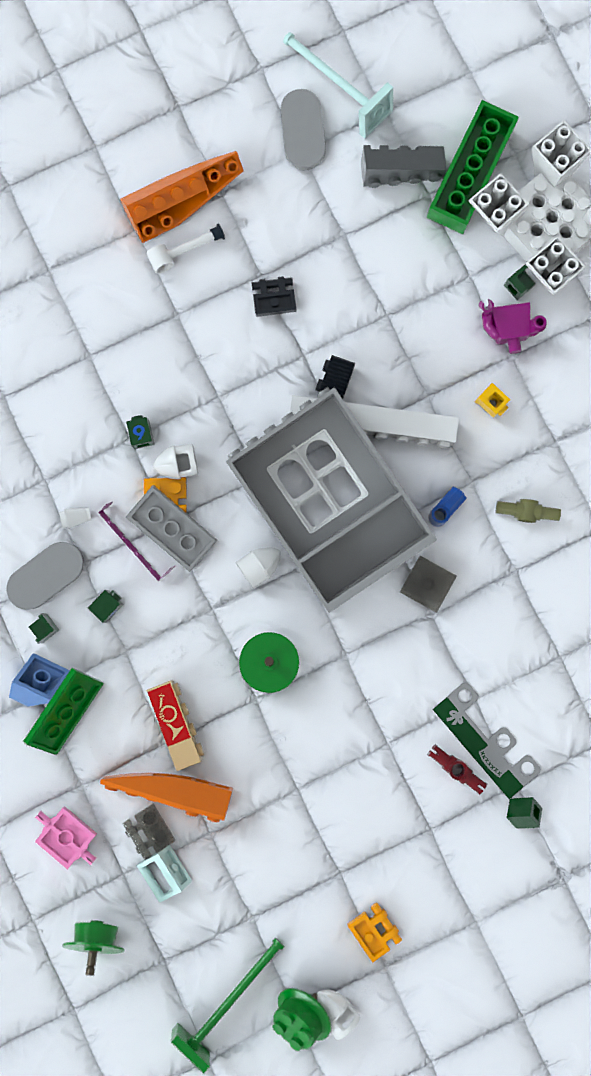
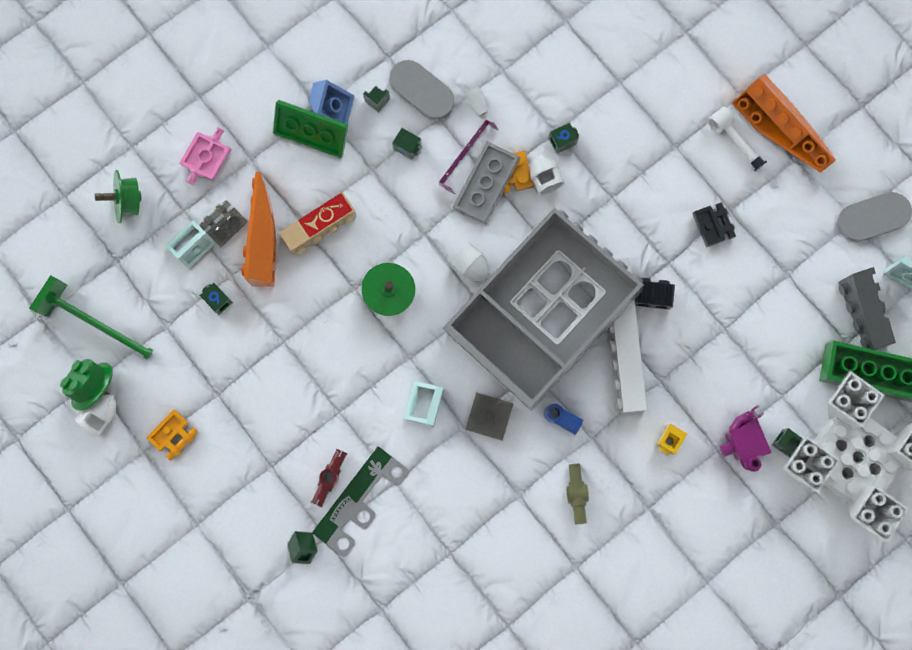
camera: 80 degrees right, 5 degrees down
(233, 856) = (215, 298): none -> dark green brick
(404, 639) = (438, 391): none -> light aqua tile

